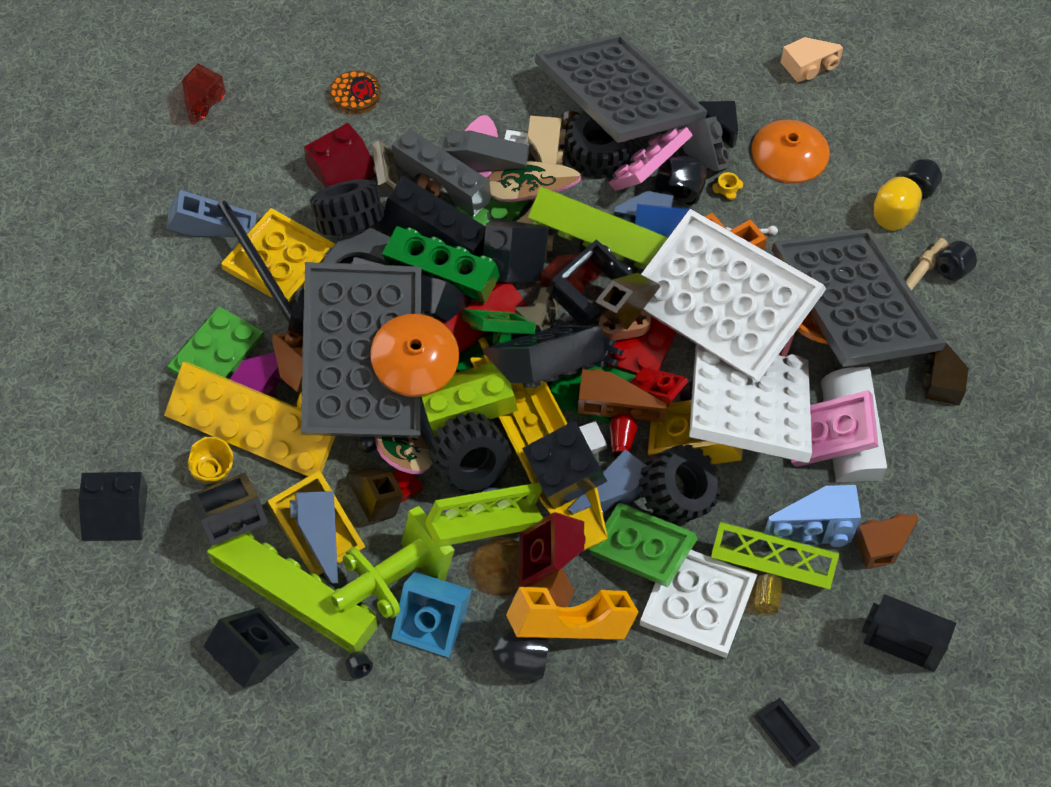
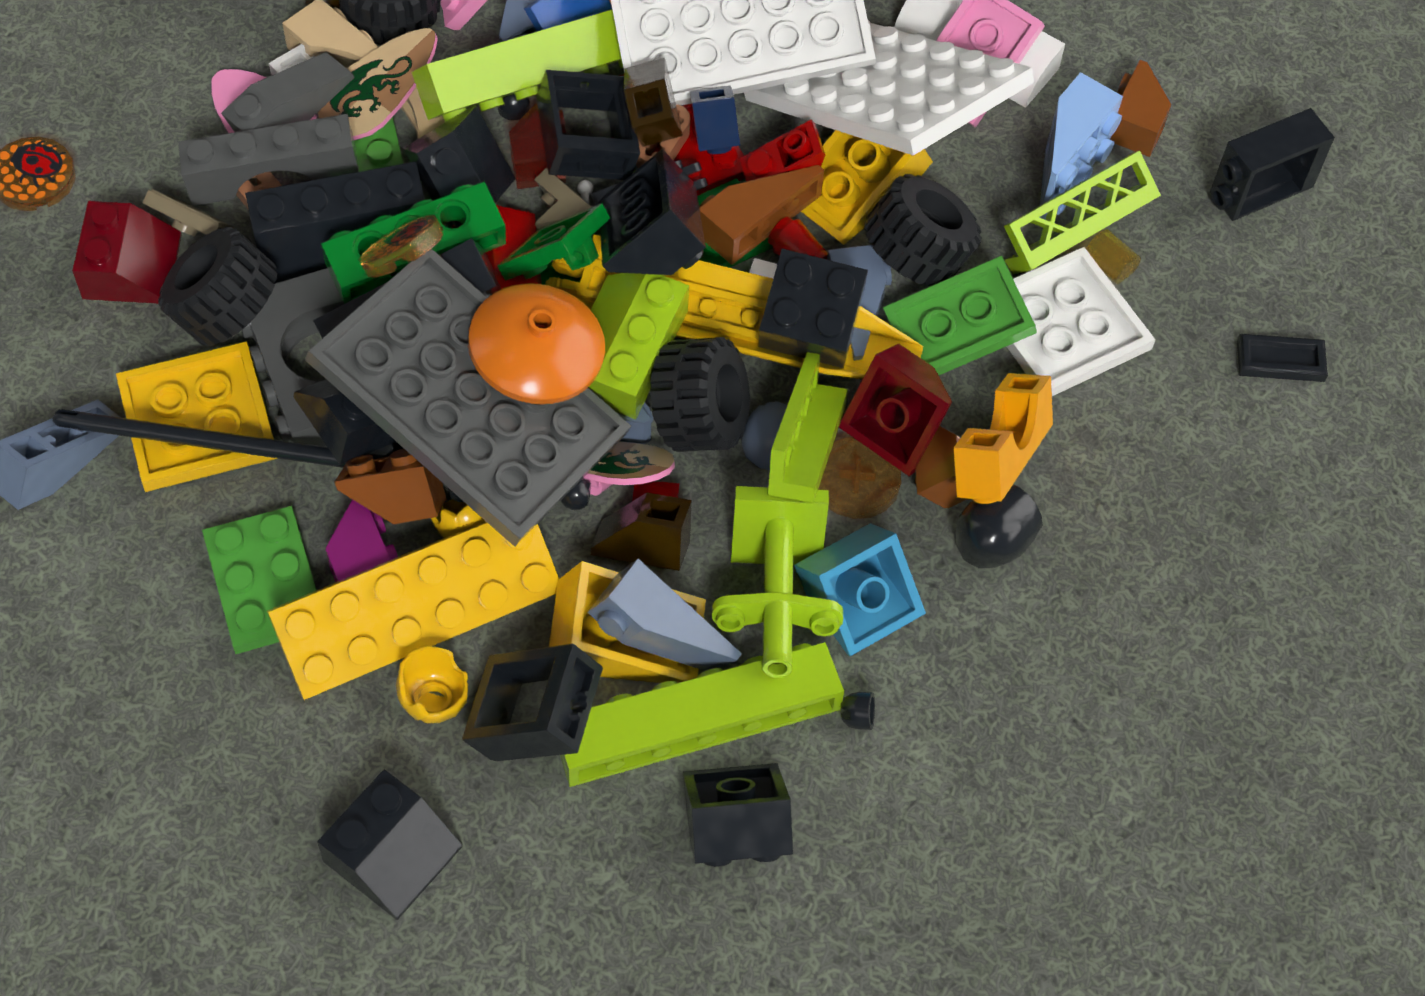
camera: 55 degrees left, 0 degrees up
(414, 256) = (405, 242): none -> clear orange tile
(652, 336) = (715, 119): none -> dark blue brick

